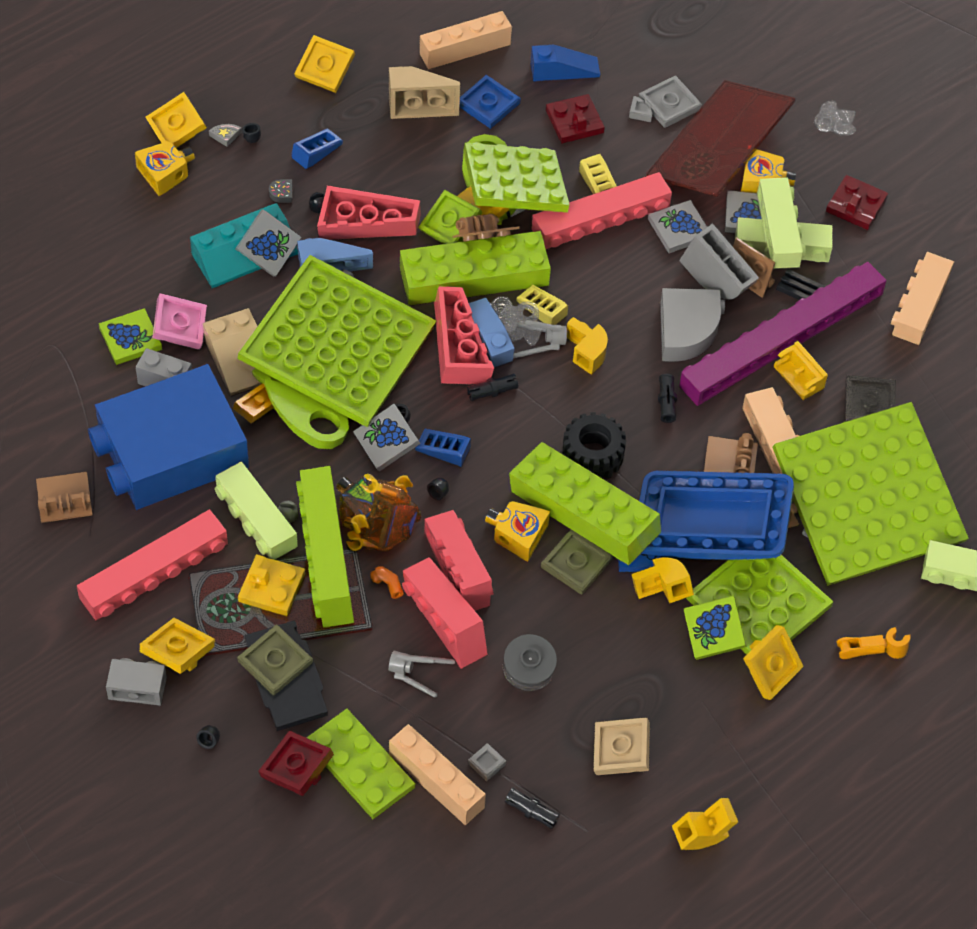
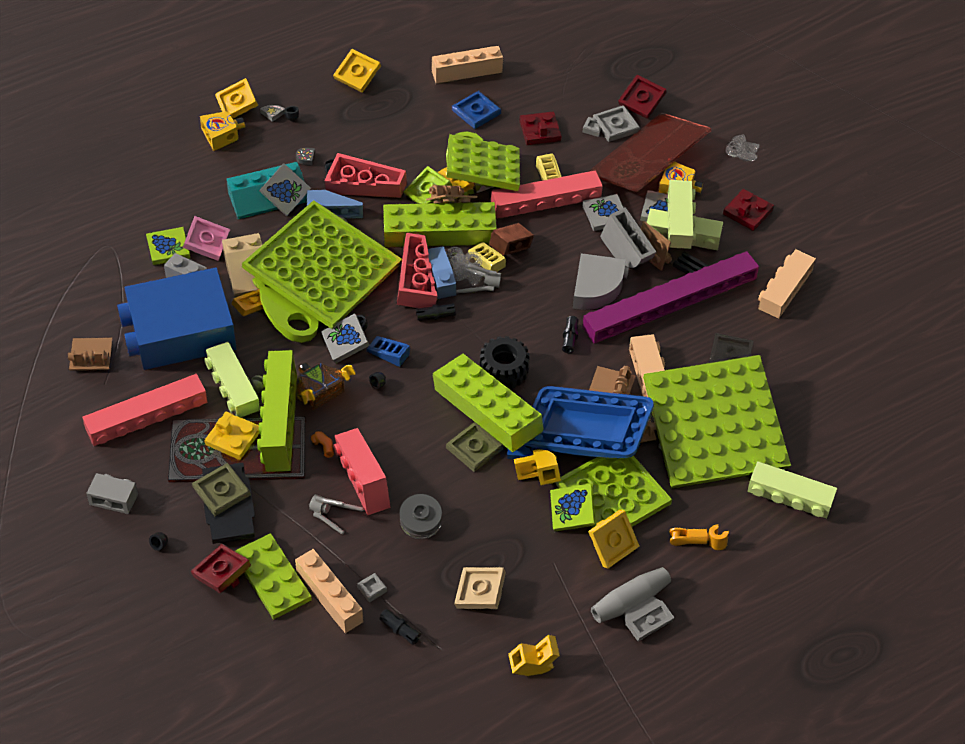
camera: 10 degrees right, 5 degrees down
(177, 645) = (149, 470): yellow hinge -> none
(305, 157) = (337, 128): blue slope -> none
(389, 519) = (332, 396): clear orange torso -> none
(421, 94) = (424, 97): tan slope -> none
(459, 558) = (381, 433): coral wedge -> none
(519, 527) = (434, 415): yellow torso -> none
(560, 63) = (534, 87): blue slope -> none
(570, 278) = (511, 239): none -> copper brick
(590, 346) = (517, 289): yellow brick -> none
(697, 61) = (642, 96): none -> dark red hinge
(801, 371) = (679, 326): yellow hinge -> none
(813, 738) = (637, 603): none -> light grey plate

